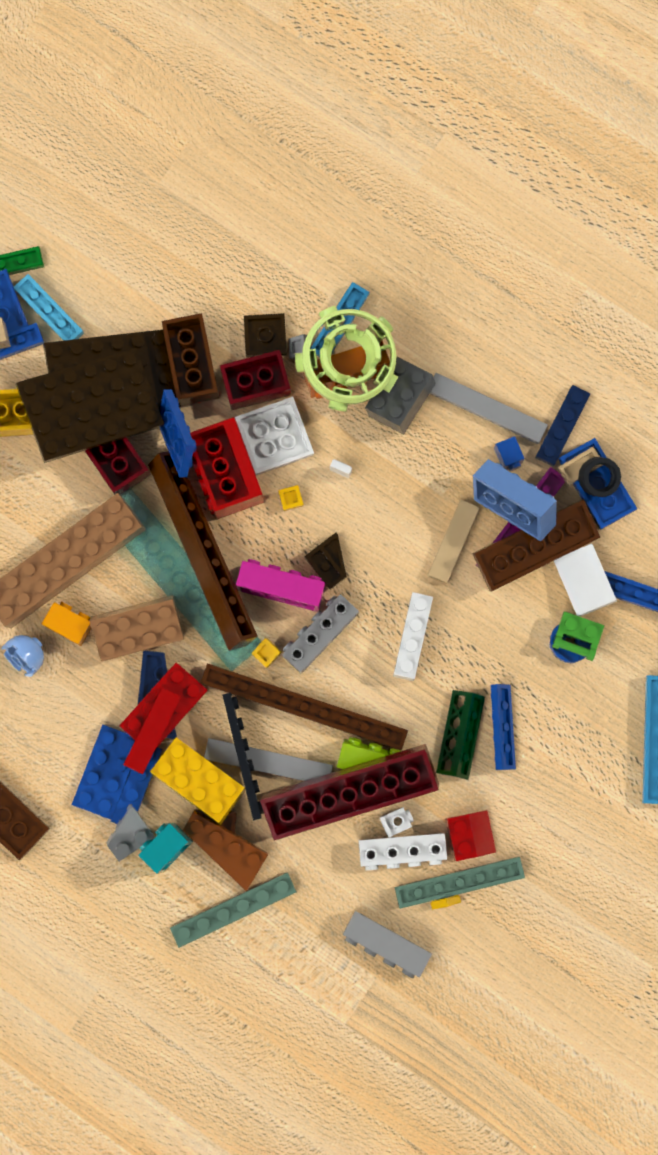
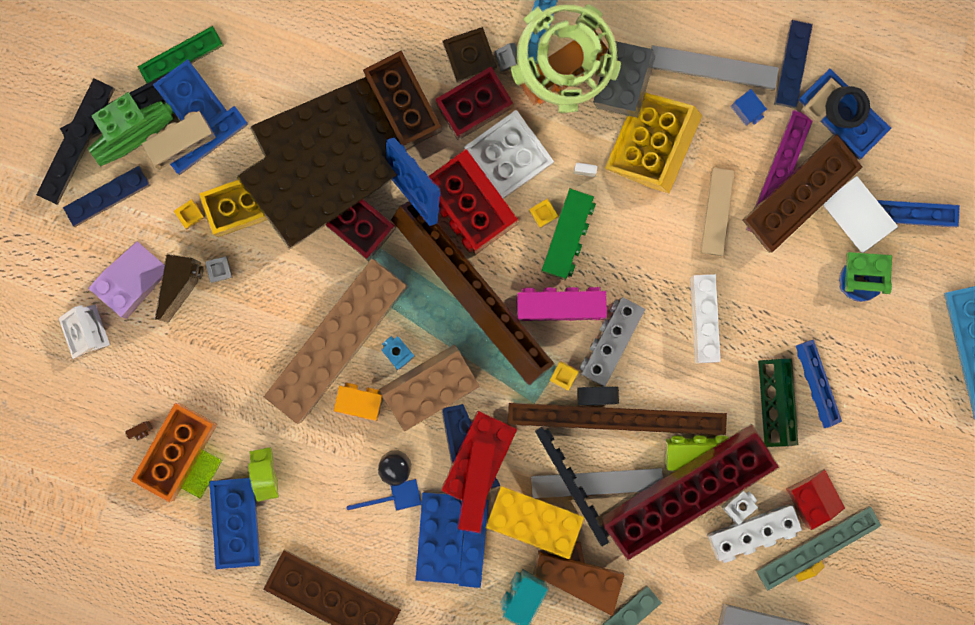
camera: 20 degrees left, 5 degrees up
(24, 653) = (324, 444): light blue cylinder -> none
(48, 309) = (242, 88): medium azure plate -> none
(83, 694) = (394, 468): none -> black hair
(85, 723) = (404, 497): none -> blue piece
(123, 593) = (405, 354): none -> dark azure brick
(129, 834) = (481, 594): light grey wing -> none
(291, 679) = (597, 395): none -> black tyre
(306, 523) = (567, 234): none -> green brick
(328, 561) = (599, 267): dark brown wing -> none
(413, 462) = (655, 143): none -> yellow slope
(514, 499) = (771, 154): medium blue brick -> none

